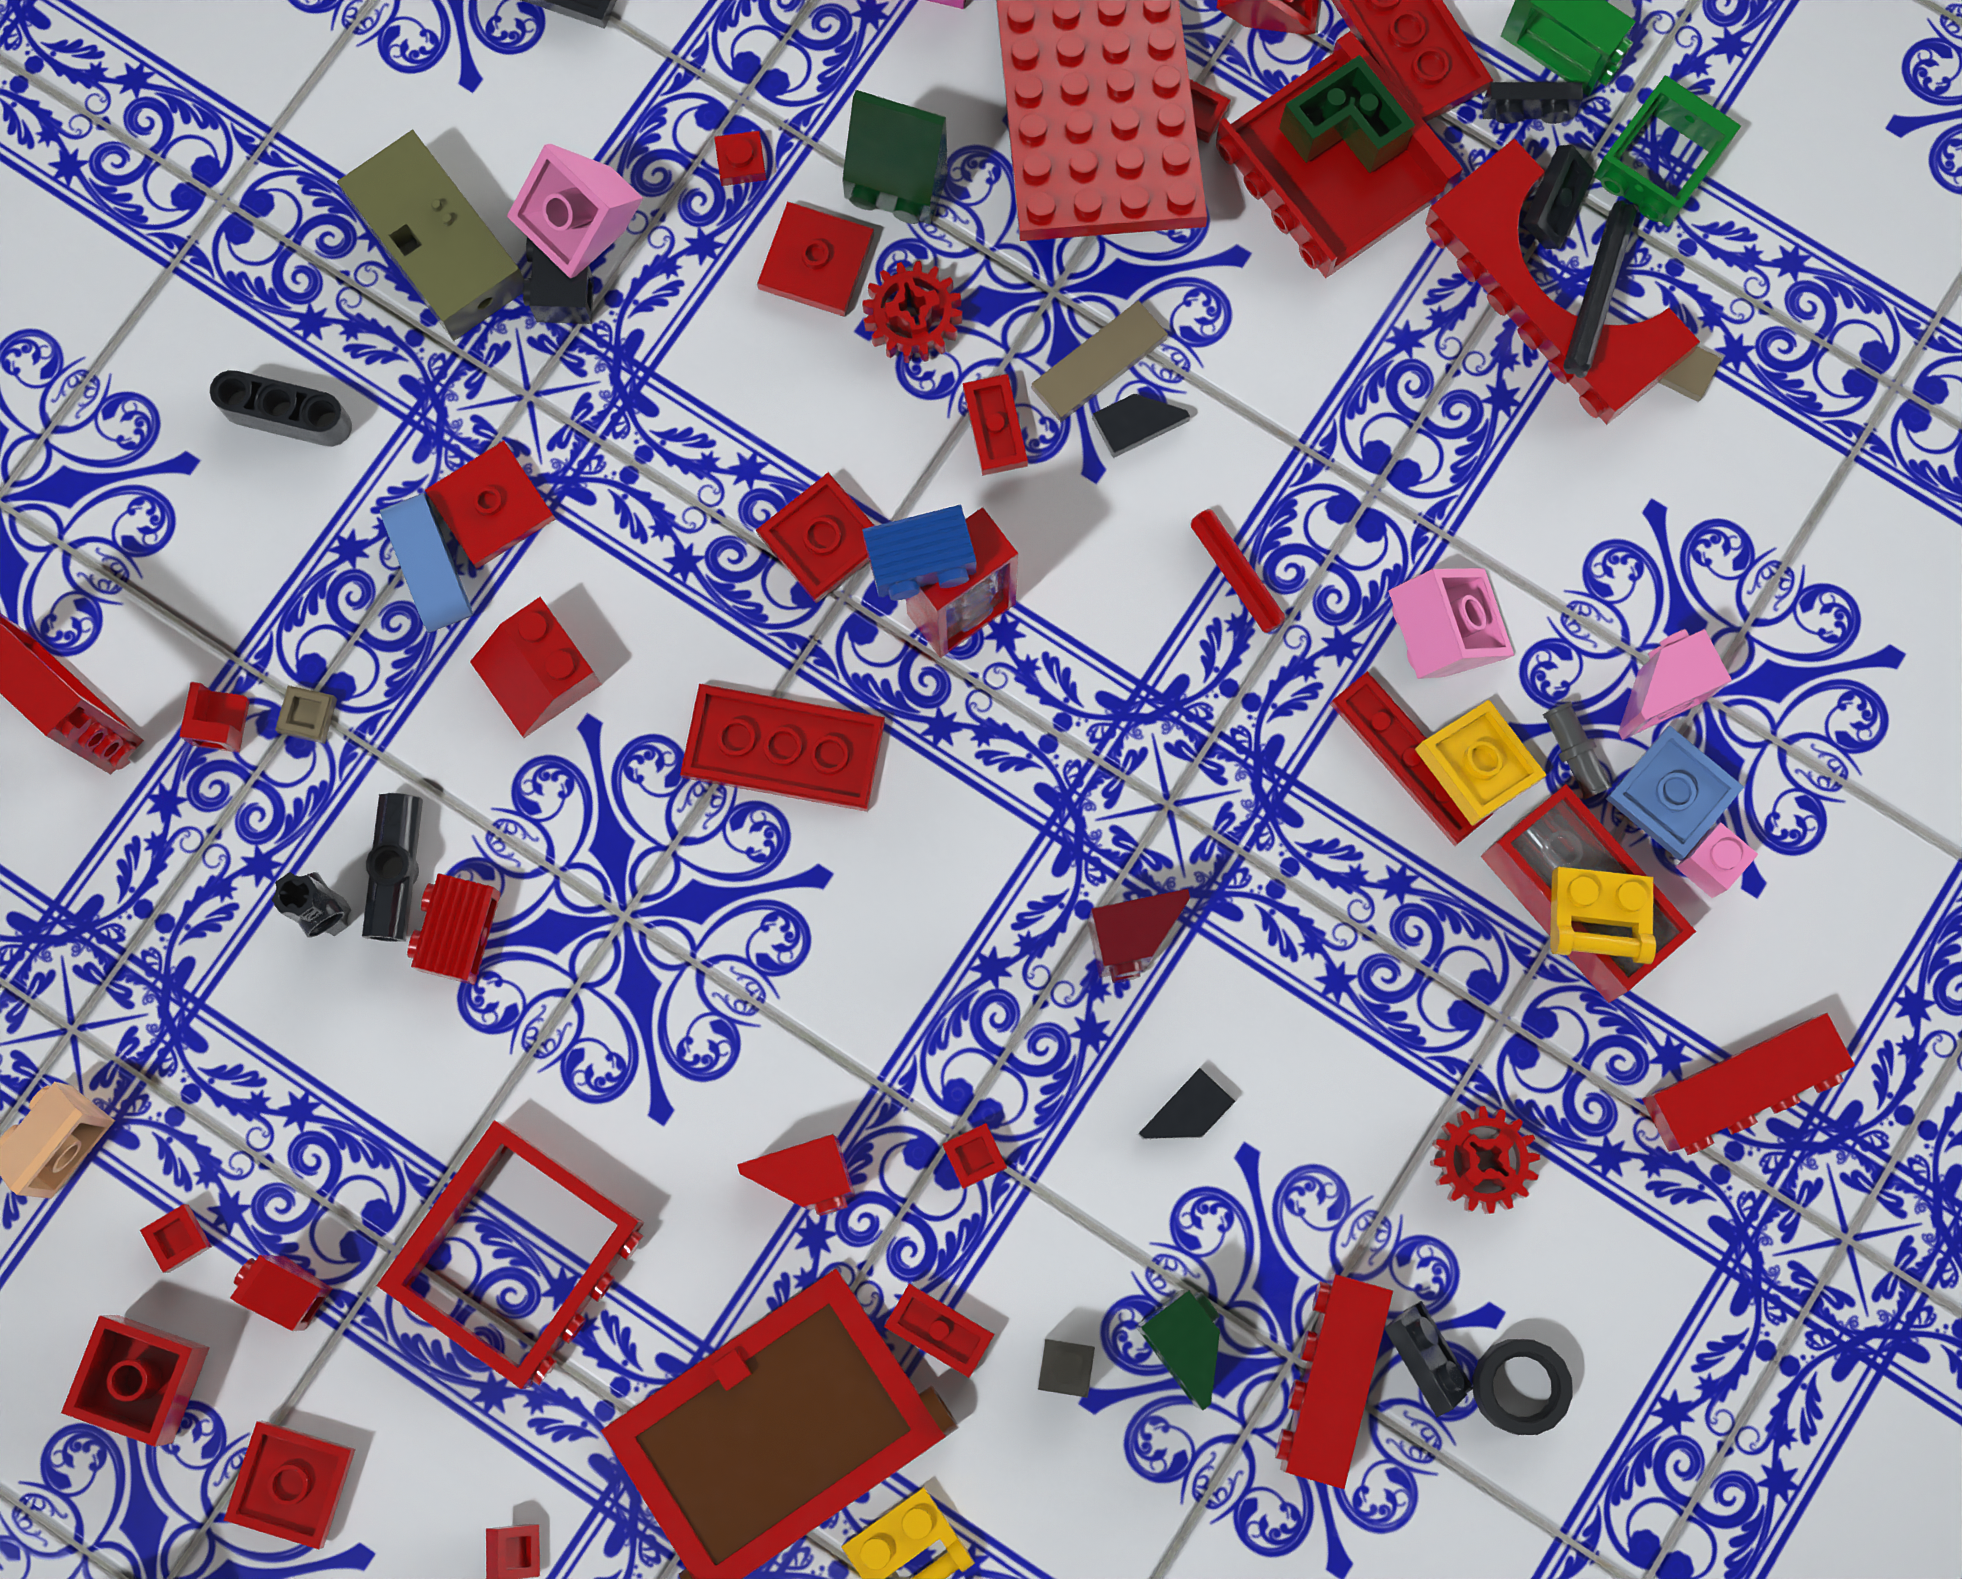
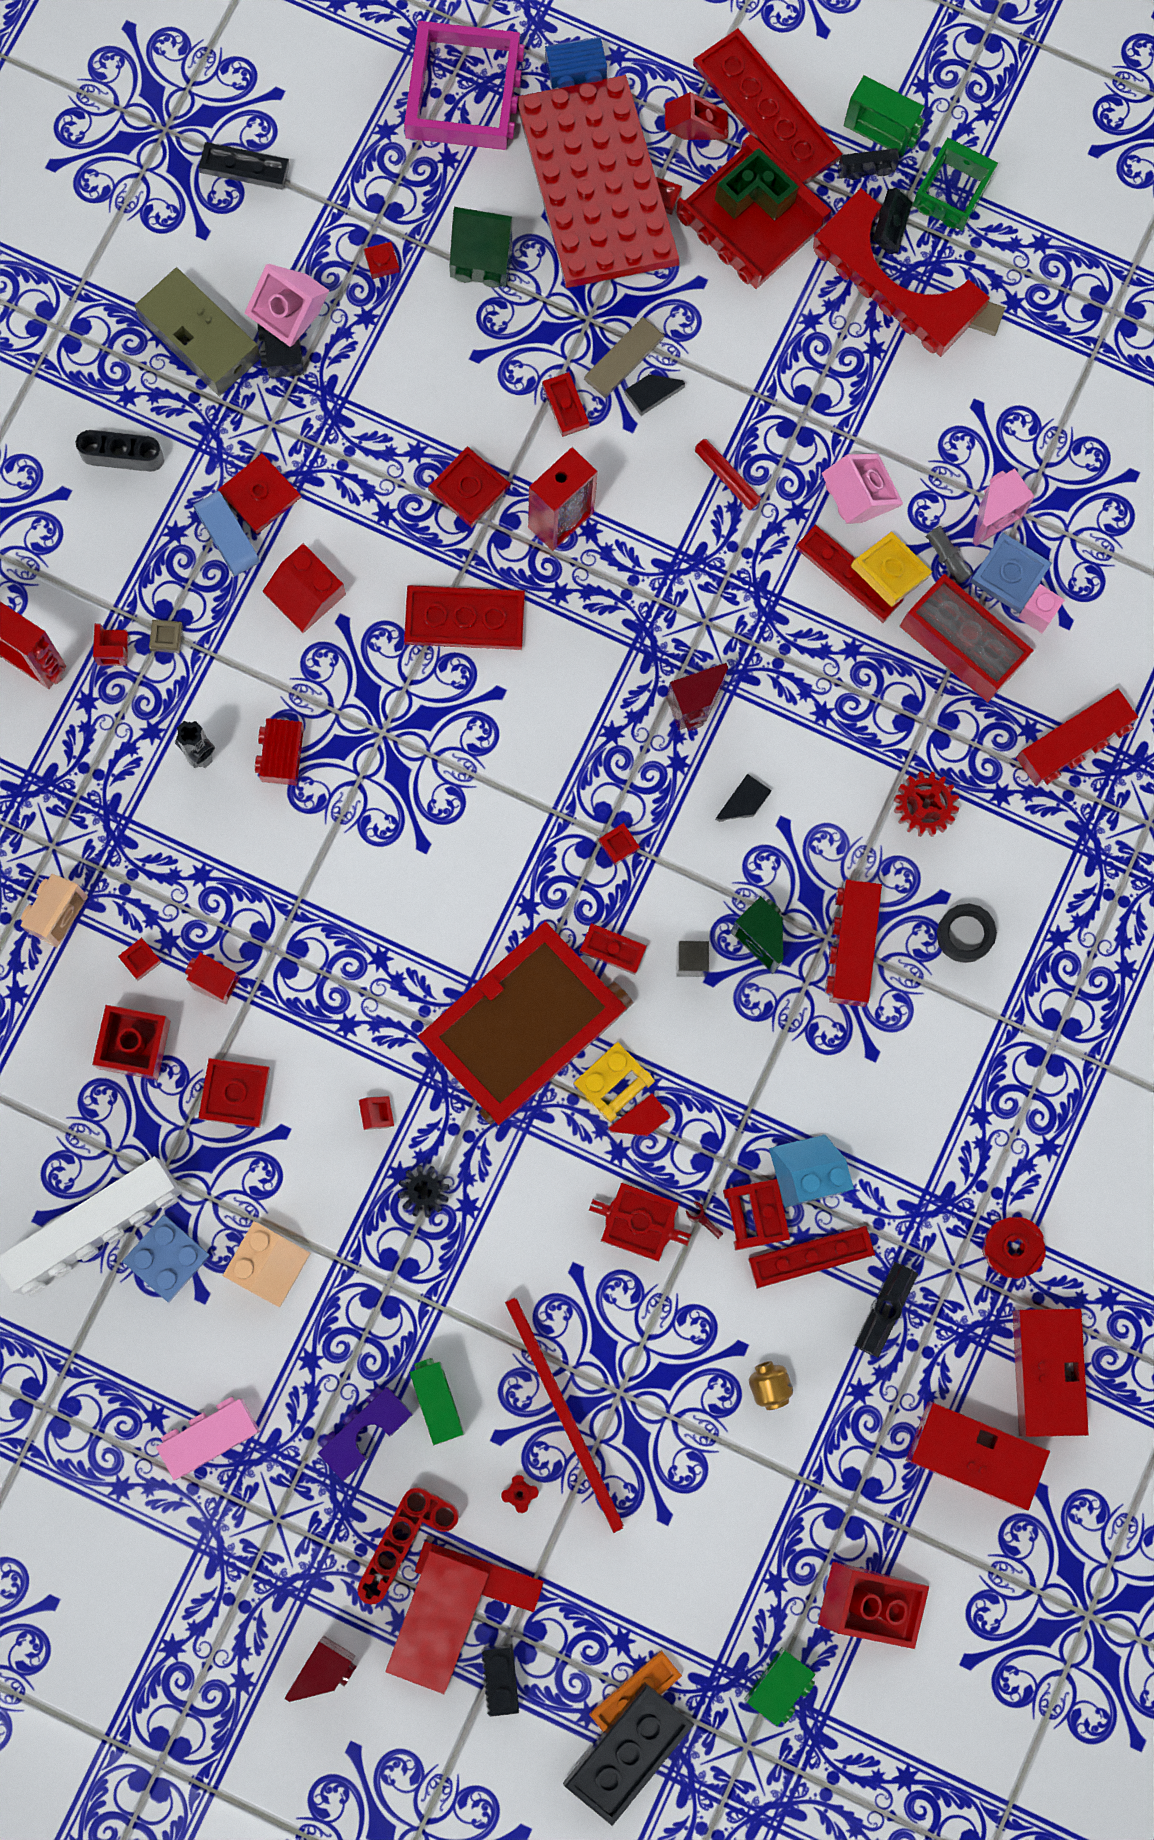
camera: 15 degrees left, 0 degrees up
(394, 836) = (236, 702): black piece -> none
(445, 1214) = (305, 916): red window -> none
(806, 1174) = (518, 866): red slope -> none
(815, 259) = (438, 316): red plate -> none
(920, 552) = (539, 477): blue brick -> none
(929, 306) = (512, 332): red gear -> none
(1429, 1358) = (908, 922): black plate -> none
(1600, 289) = (925, 273): black axle -> none
(1605, 900) = (976, 637): yellow plate -> none

